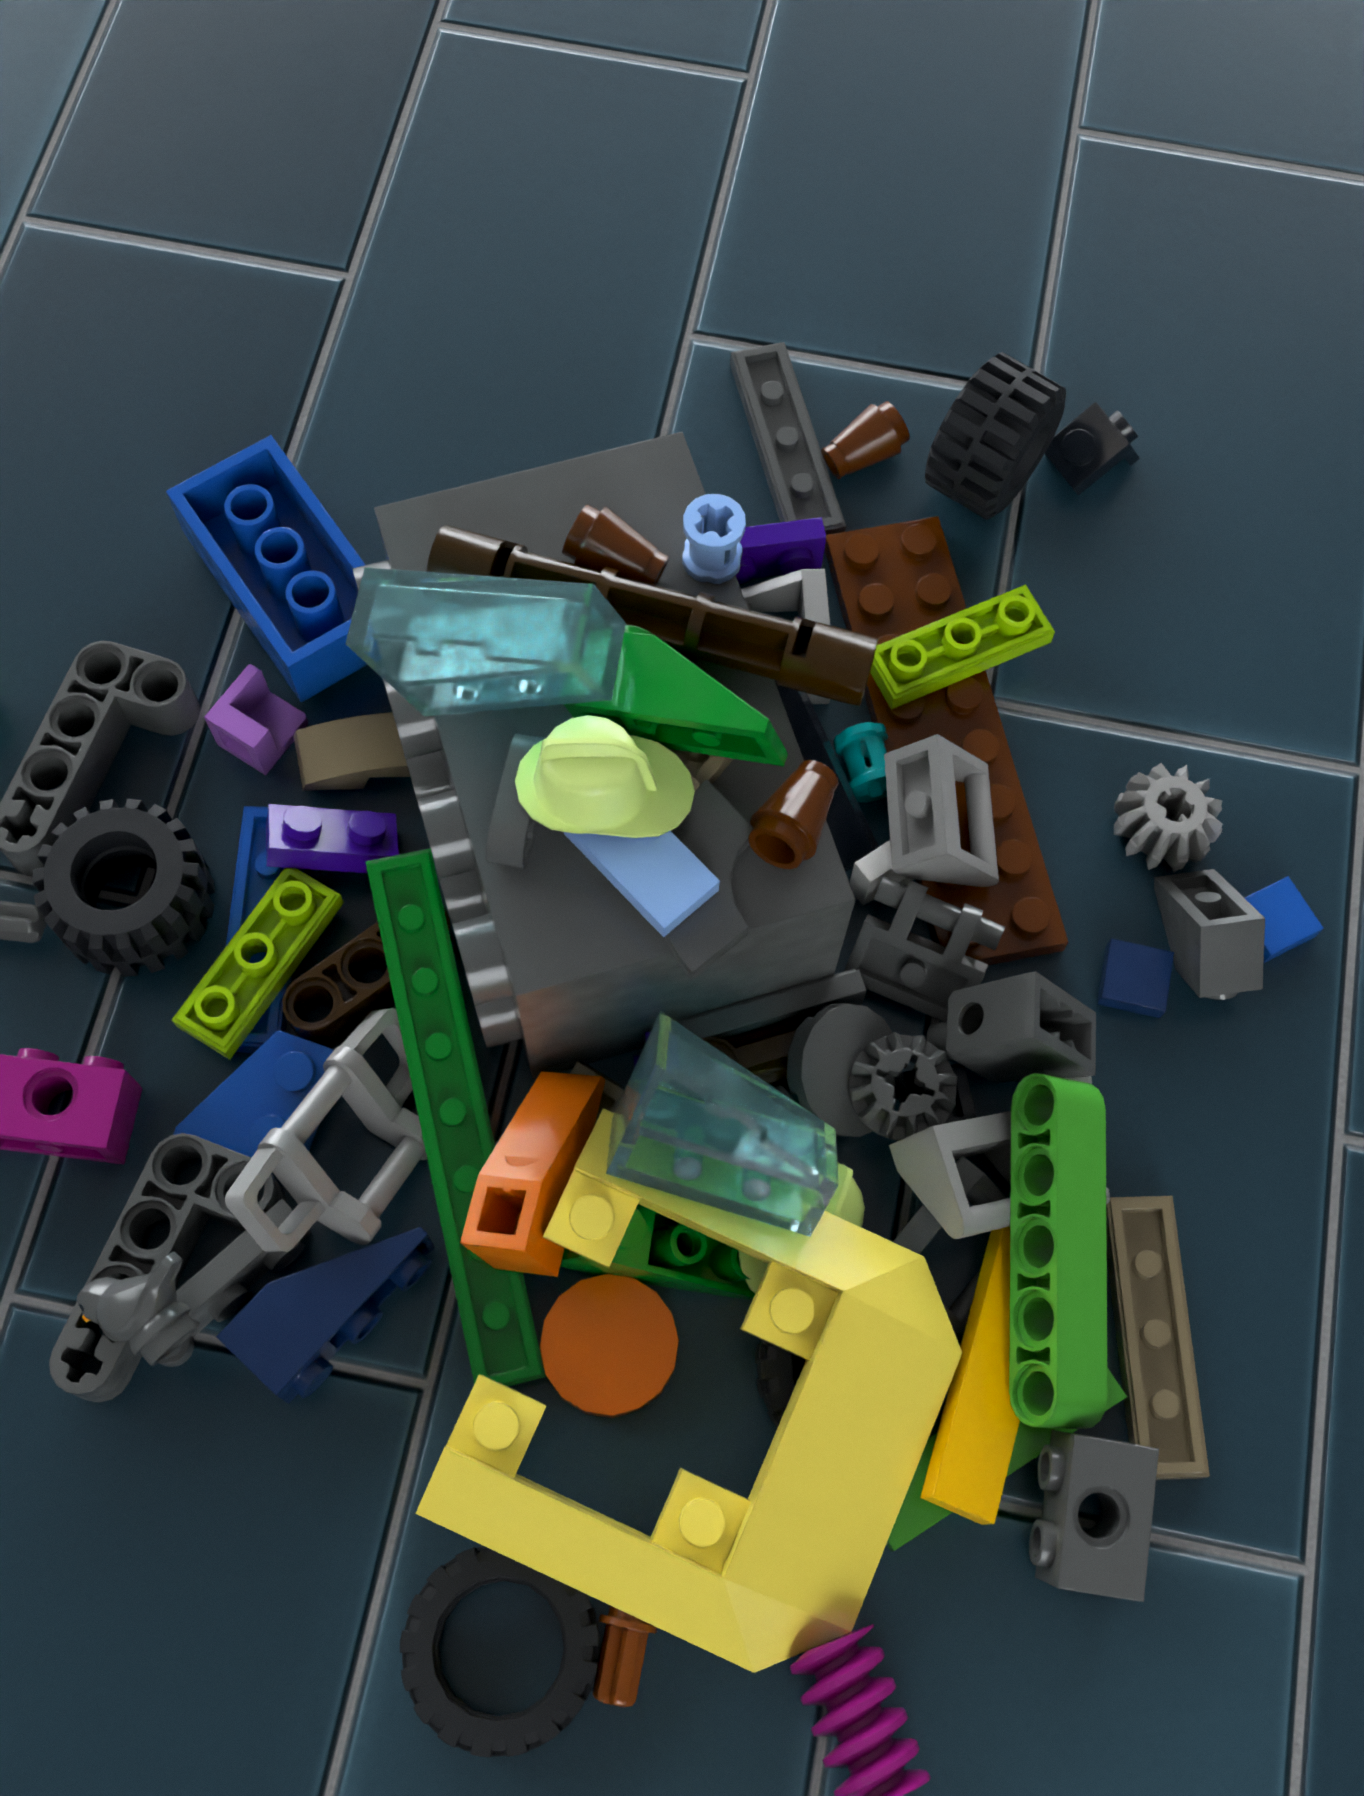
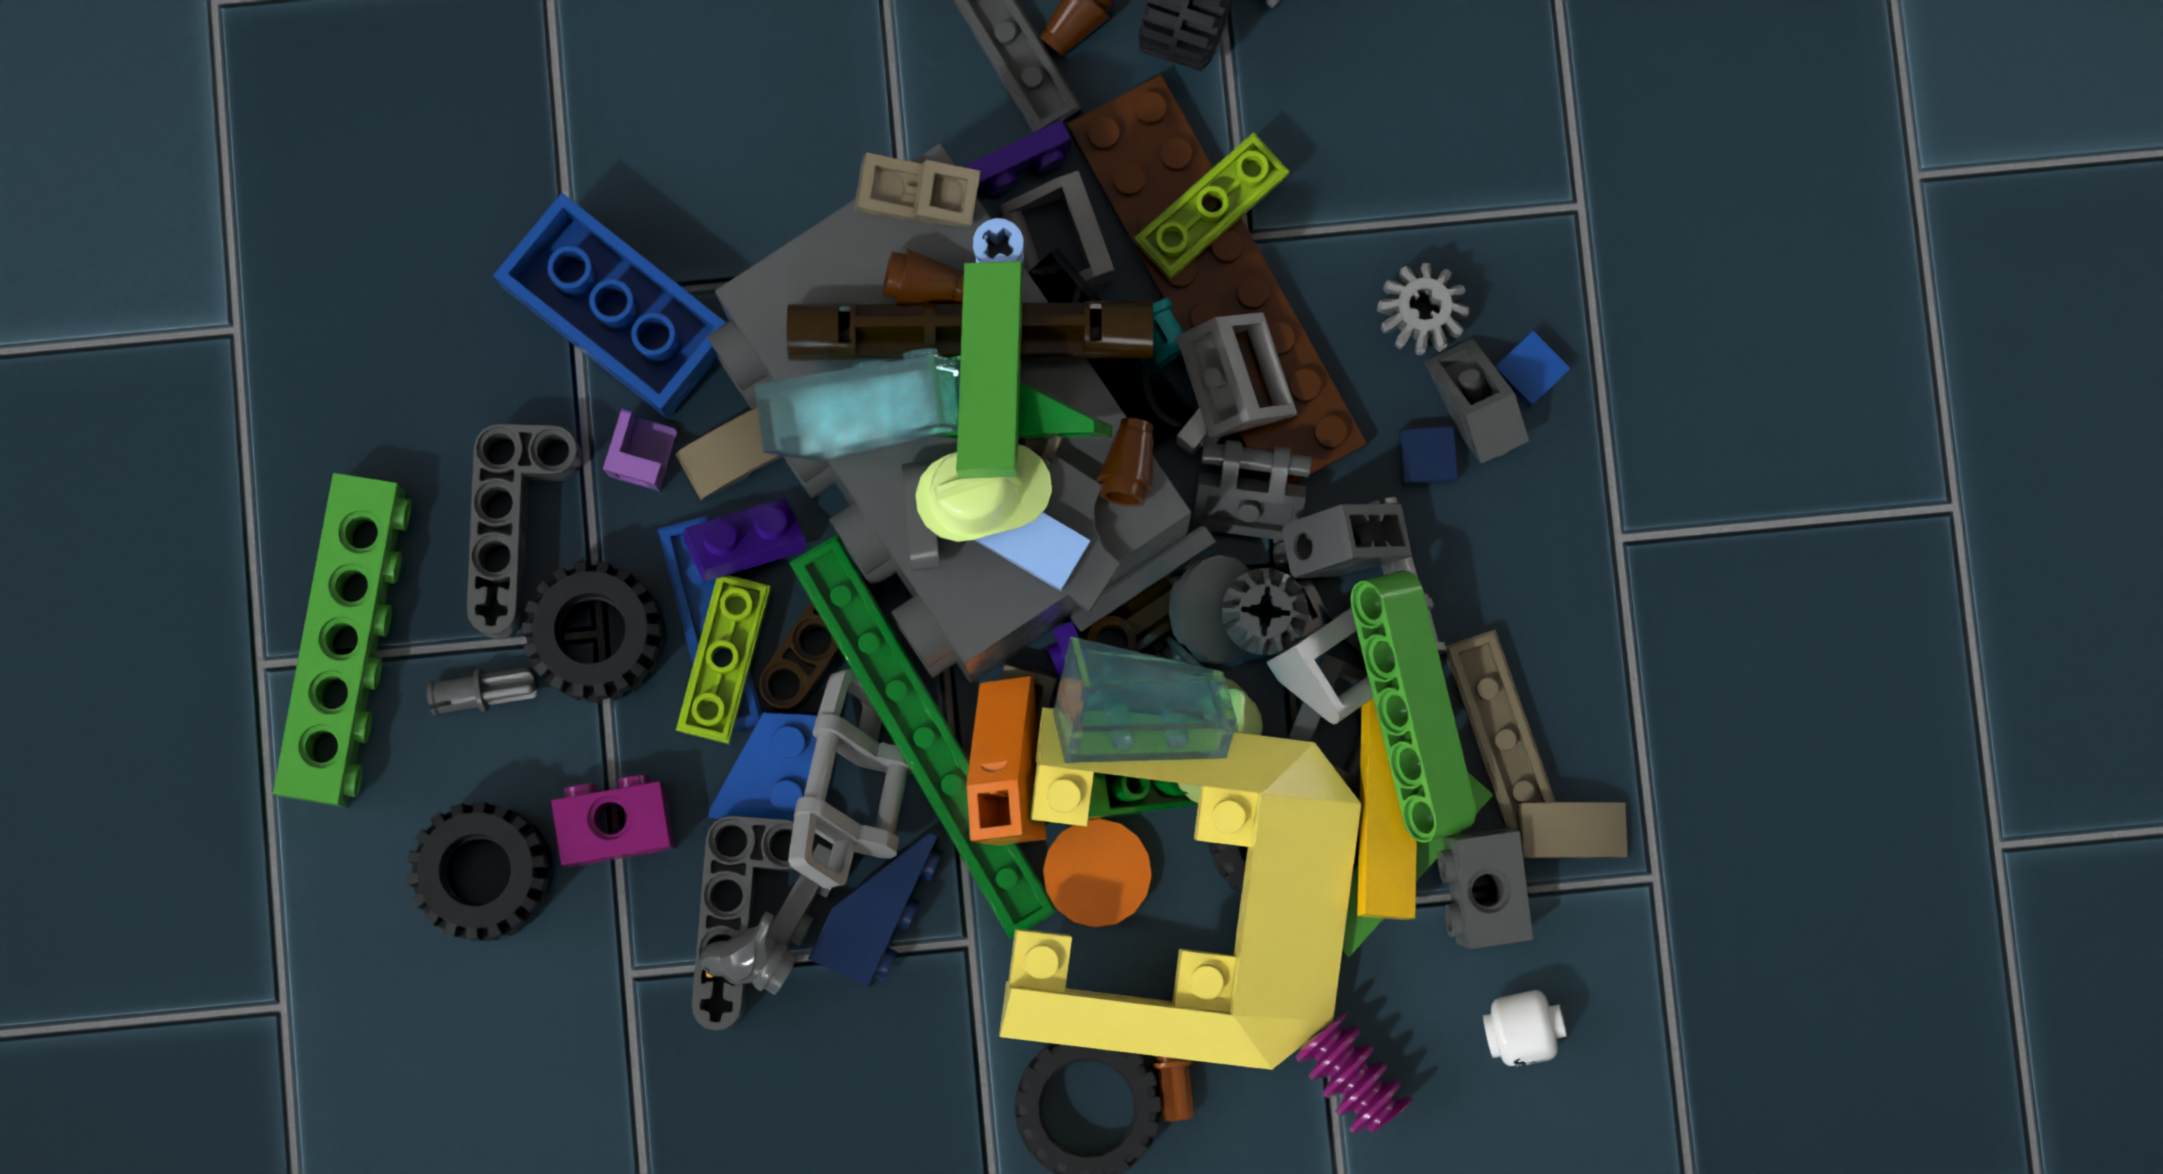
camera: 15 degrees left, 15 degrees up
(648, 470) = (917, 191): none -> dark tan slope
(655, 639) = (990, 370): none -> bright green tile
(1102, 1723) = (1524, 1028): none -> white head
(1220, 1473) = (1573, 830): none -> dark tan slope

